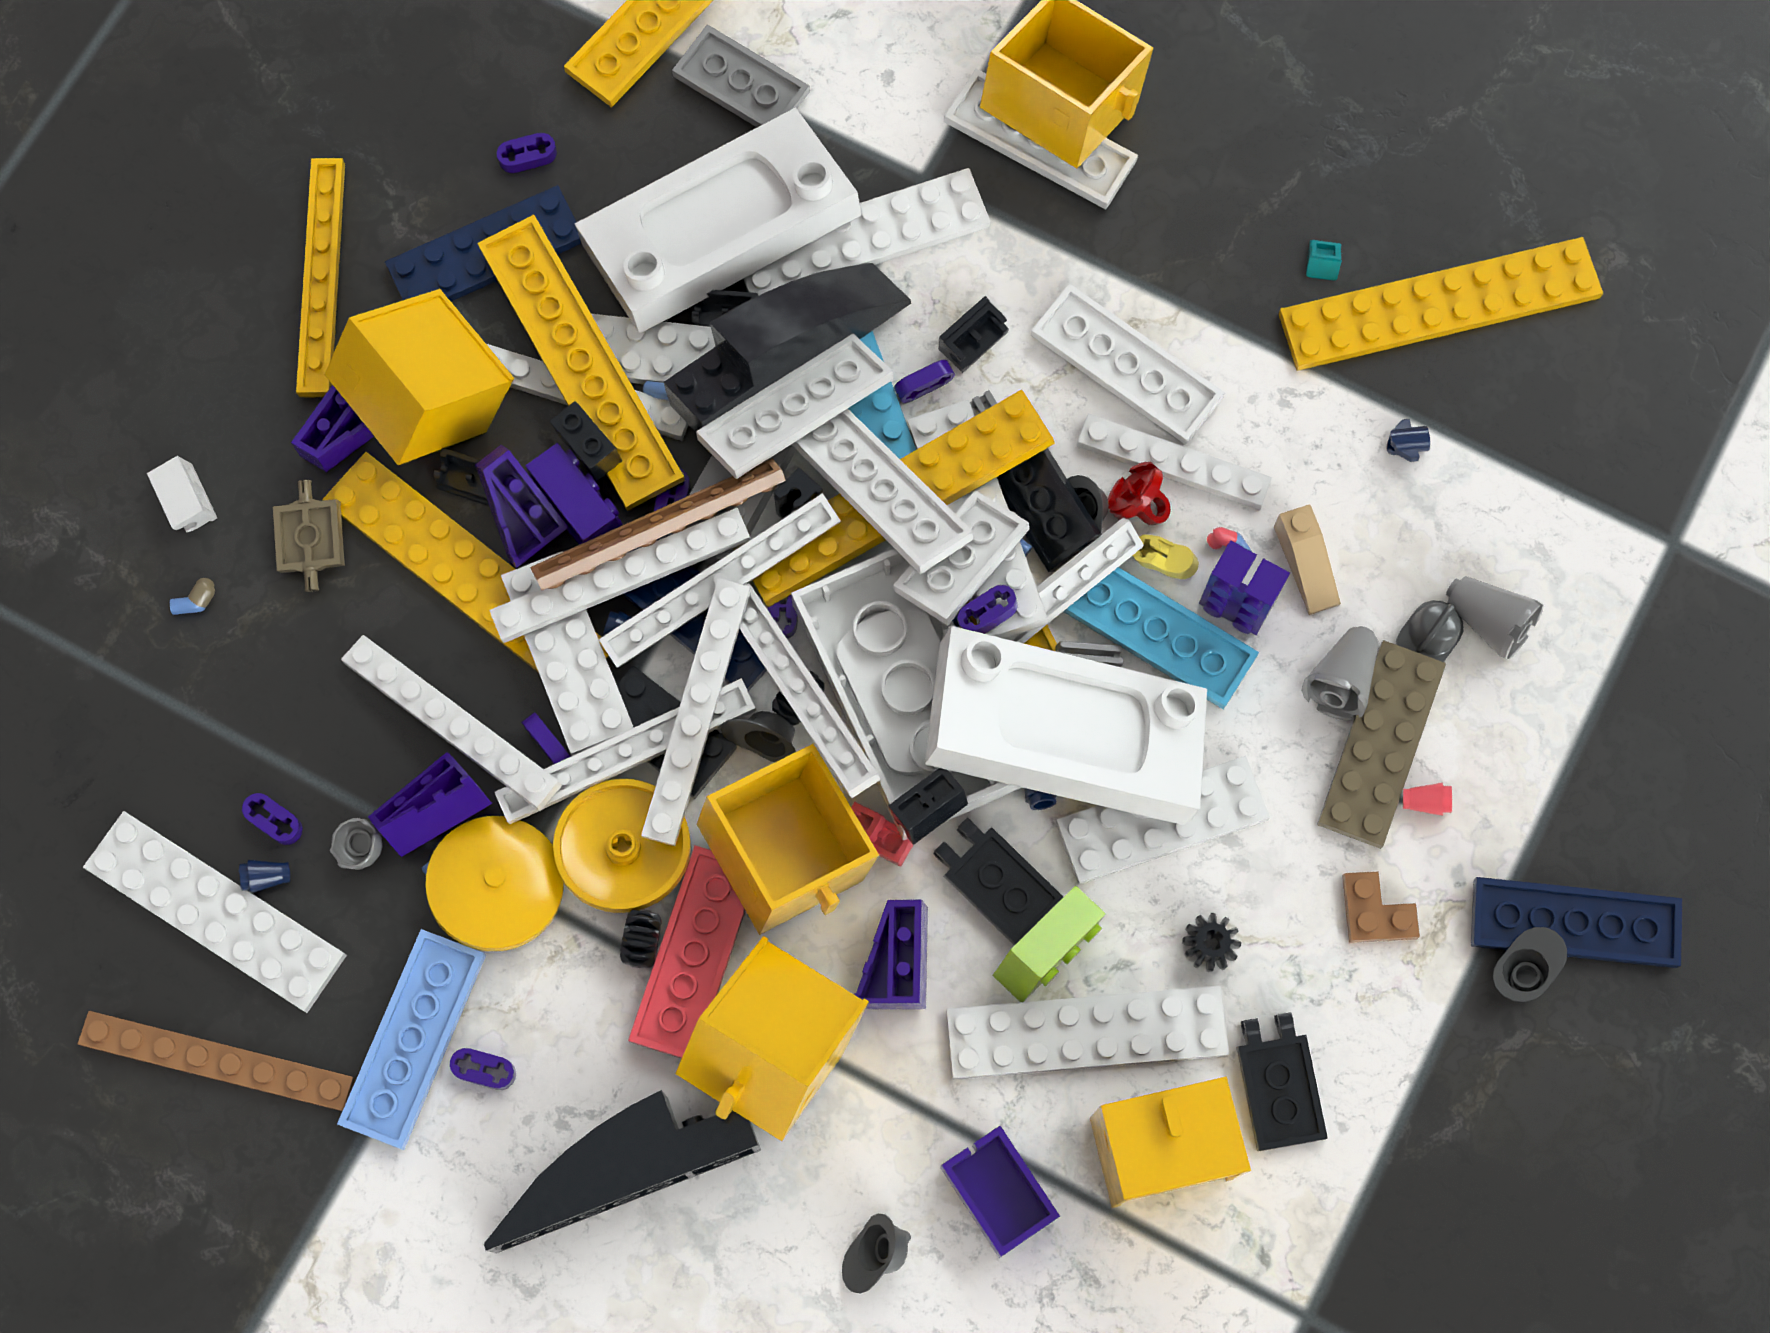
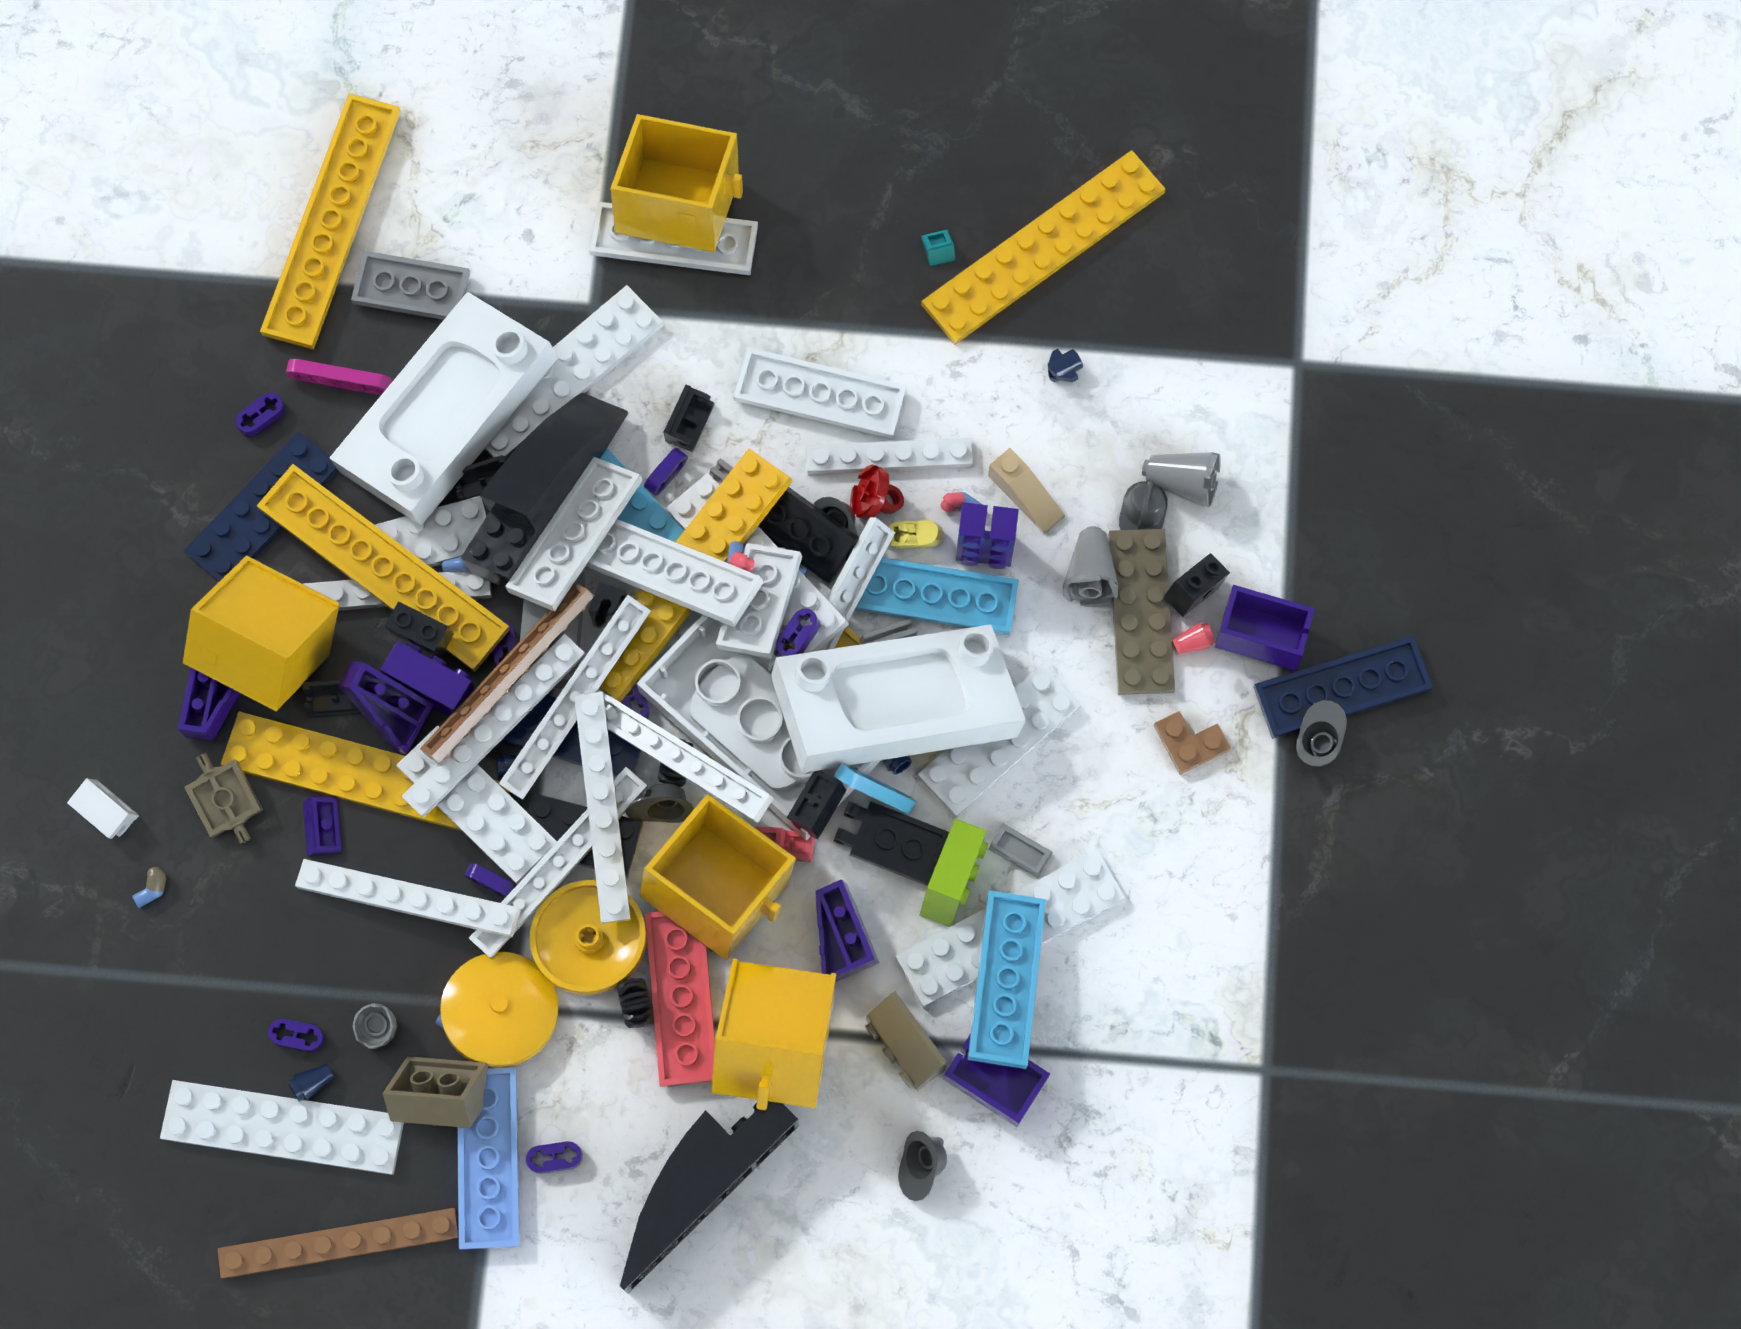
camera: 25 degrees left, 0 degrees up
(320, 276) = (136, 585): yellow plate -> none
(388, 943) = (436, 1092): none -> dark tan slope
(398, 608) = (322, 826): none -> dark purple slope
(429, 805) = (421, 970): dark purple wedge -> none
(622, 144) = (337, 376): none -> dark pink beam
(914, 1109) = (905, 1042): none -> dark tan slope
(957, 502) = (738, 559): none -> coral arm
(1000, 815) = (875, 788): none -> medium azure beam
(1056, 1090) = (1007, 979): none -> medium azure plate
(1134, 951) = (1020, 850): none -> light grey tile
(1169, 1140) = (1108, 981): yellow piece -> none
(1222, 949) = (1087, 821): black gear -> none
(1280, 1086) = (1173, 905): black tile -> none
(1456, 739) = (1196, 585): none -> black brick
(1514, 819) = (1264, 627): none -> dark purple piece

